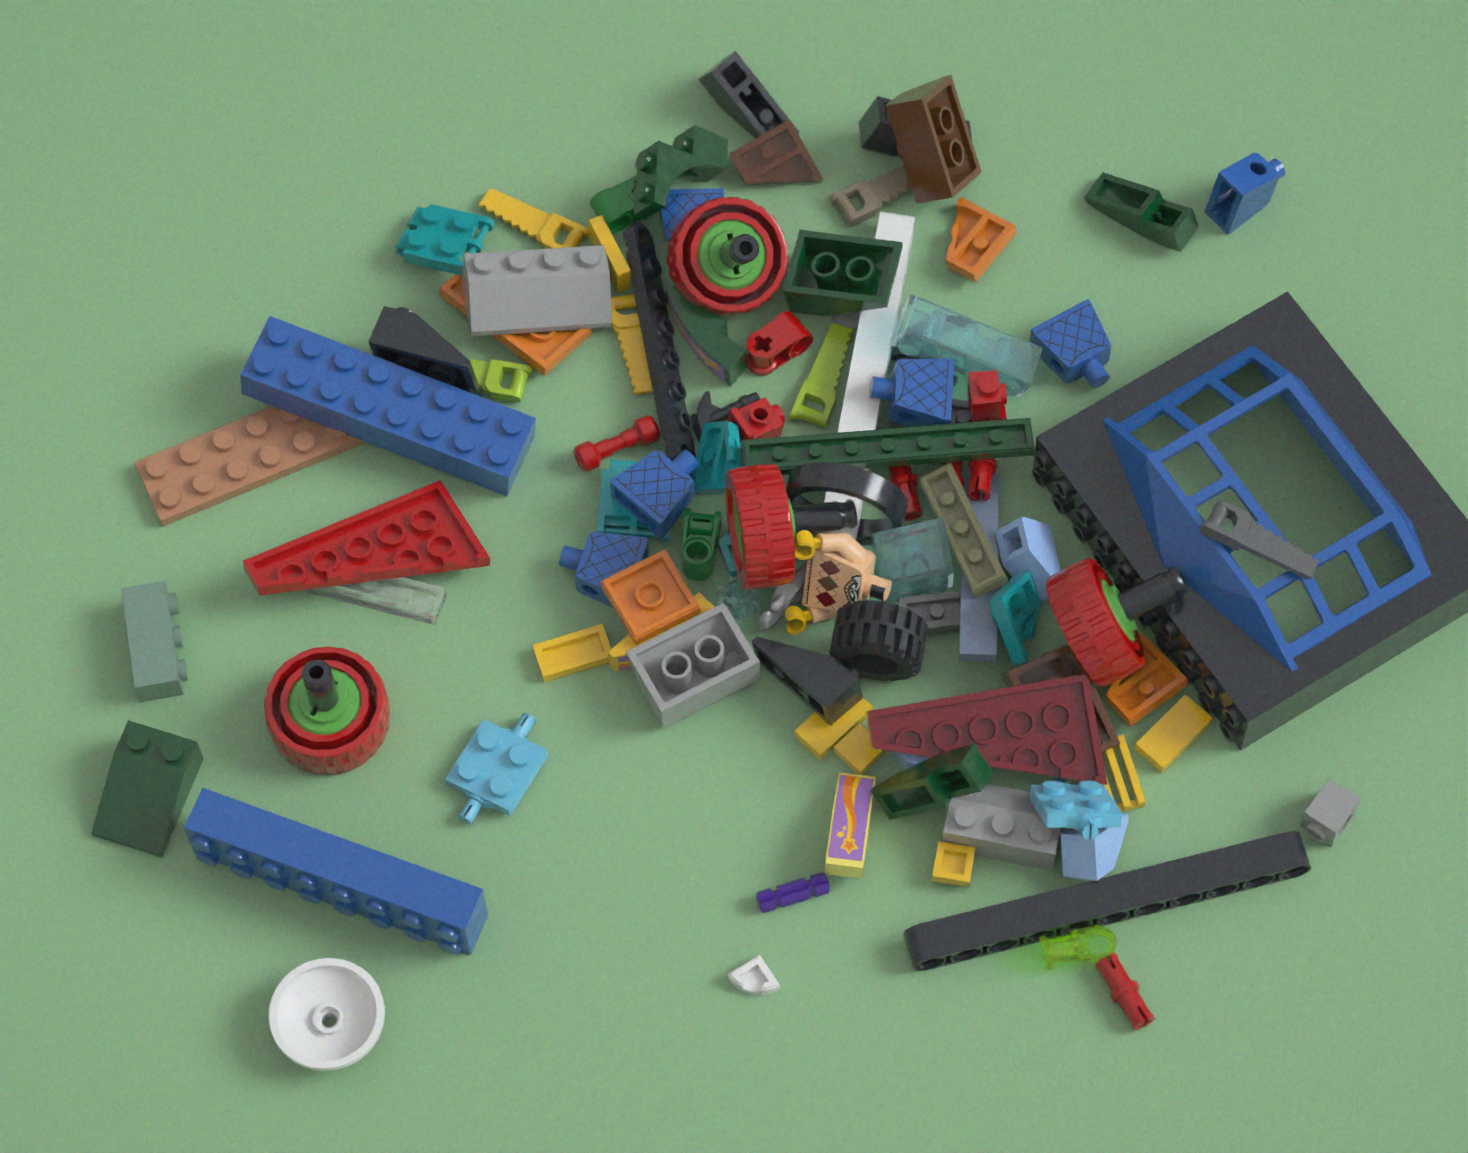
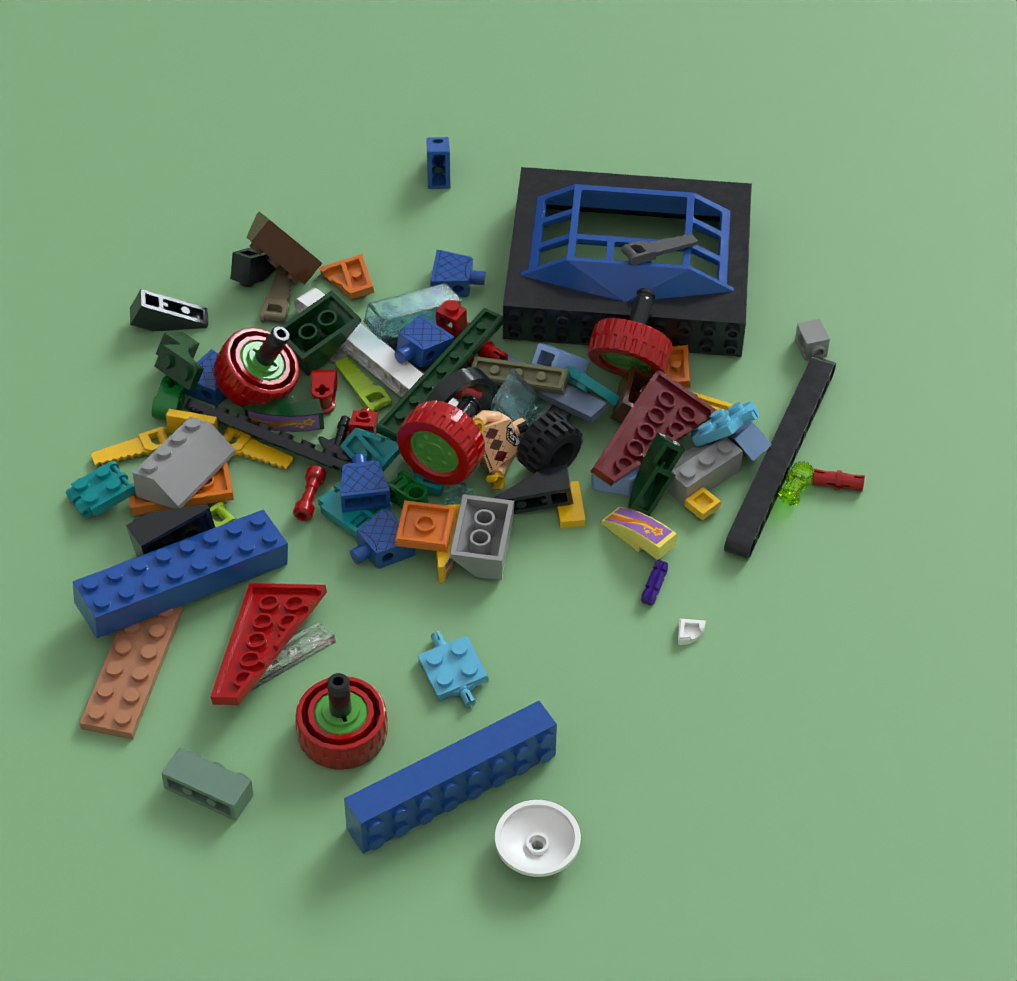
camera: 55 degrees left, 15 degrees down
(146, 788) = (300, 846): dark green slope -> none
(572, 653) = (415, 591): yellow tile -> none
(776, 158) = (214, 322): reddish brown wing -> none
(784, 597) = (478, 480): light grey piece -> none
(857, 751) = (596, 503): yellow tile -> none
(1143, 211) = (404, 206): dark green slope -> none
(1173, 733) = (709, 374): yellow tile -> none

